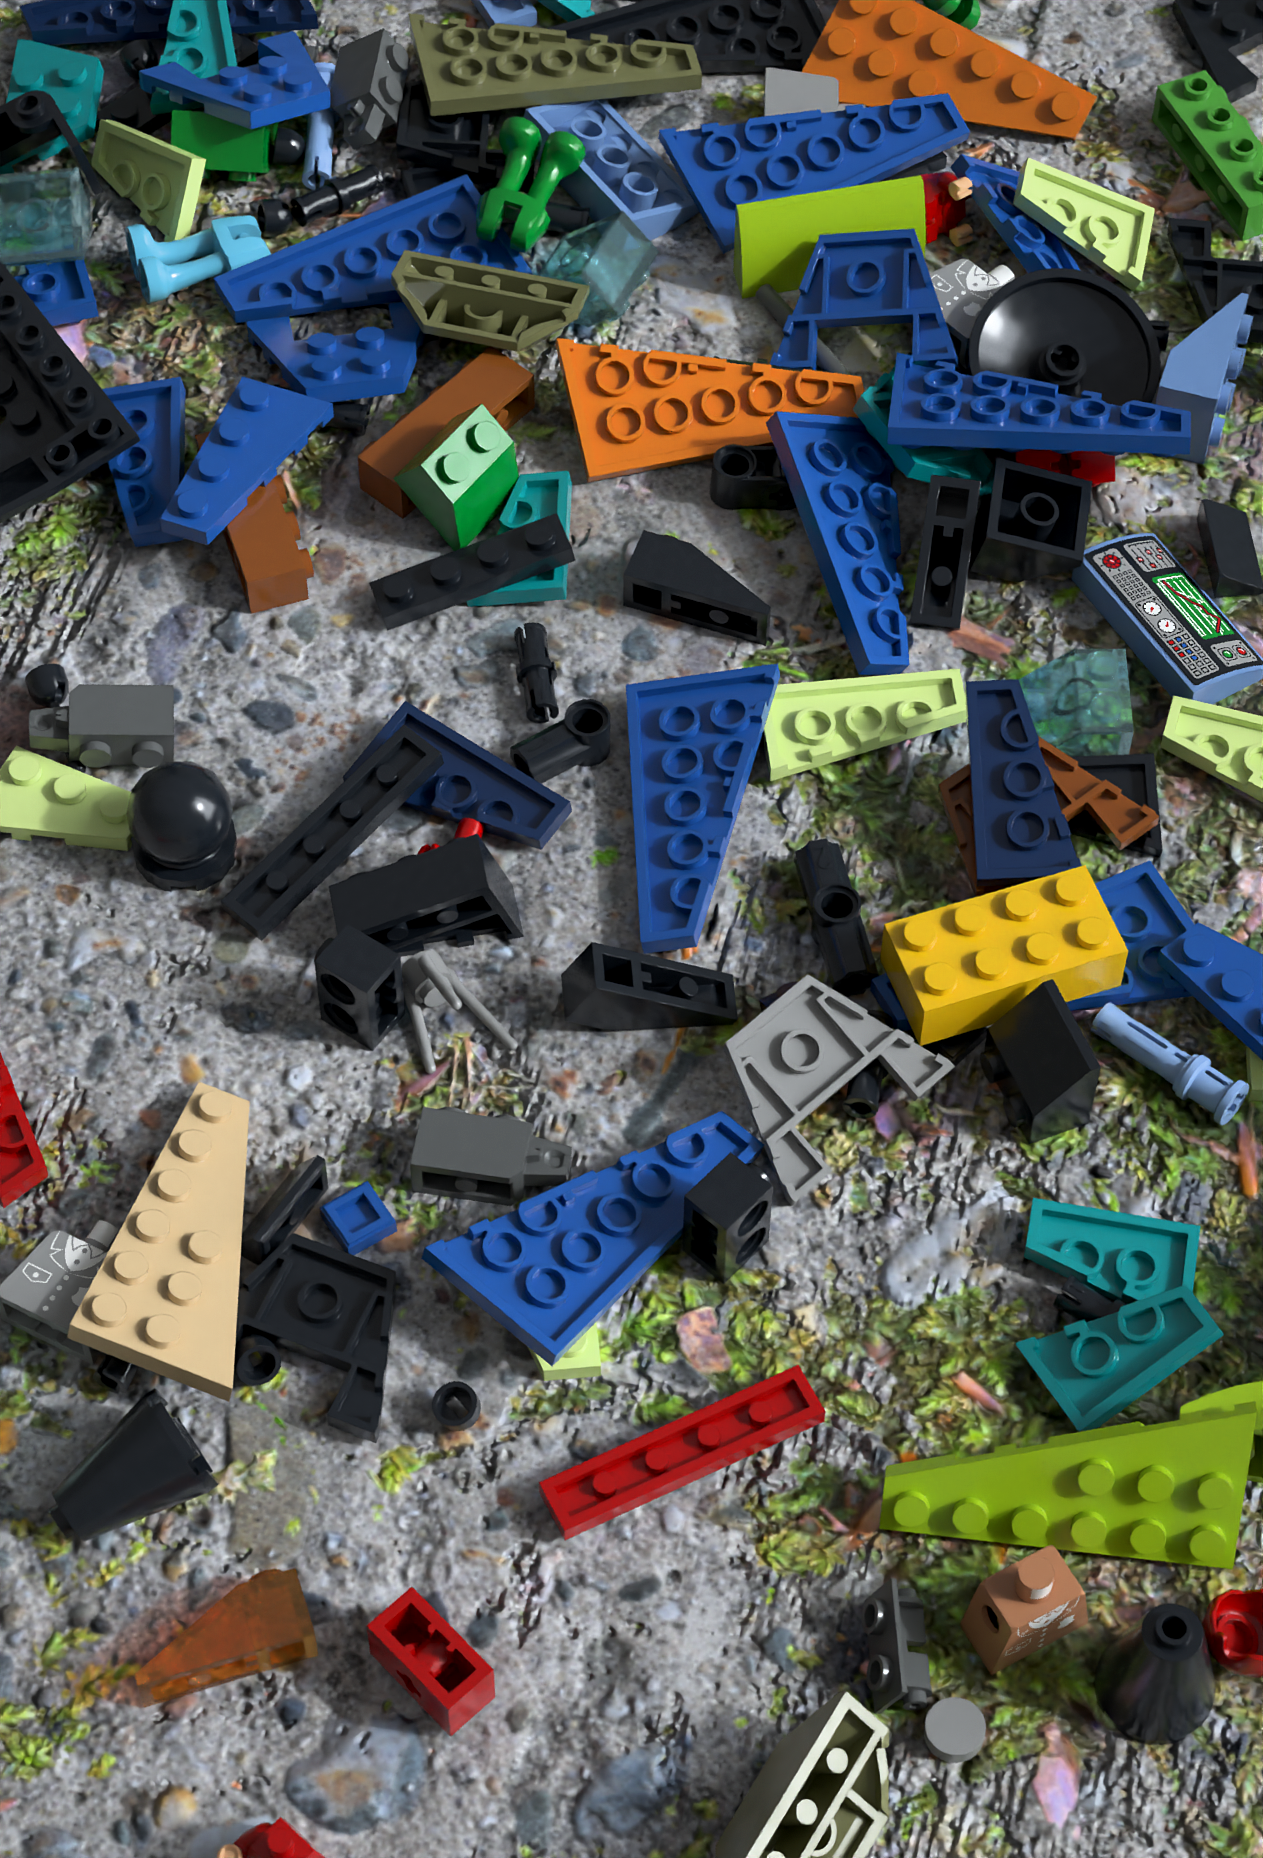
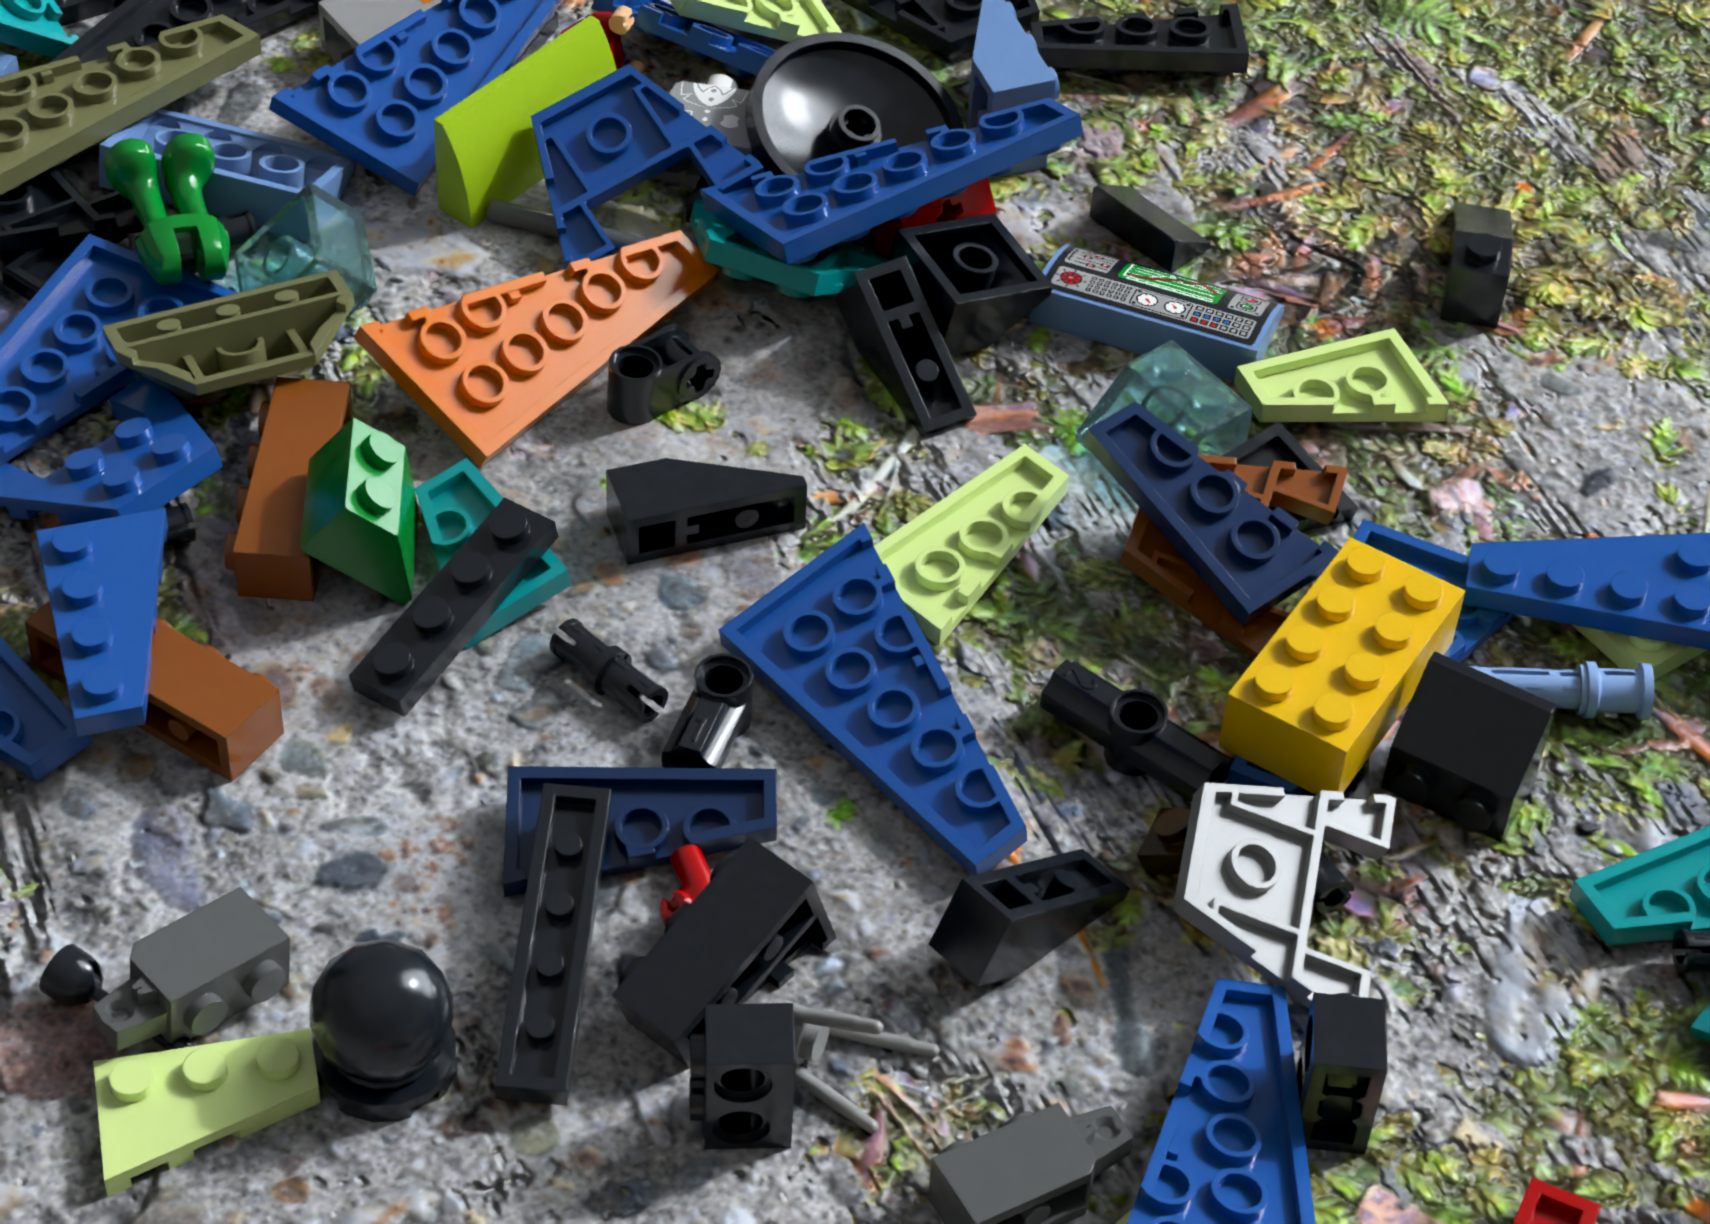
camera: 40 degrees left, 10 degrees down
(853, 528) = (805, 372): blue wing -> none

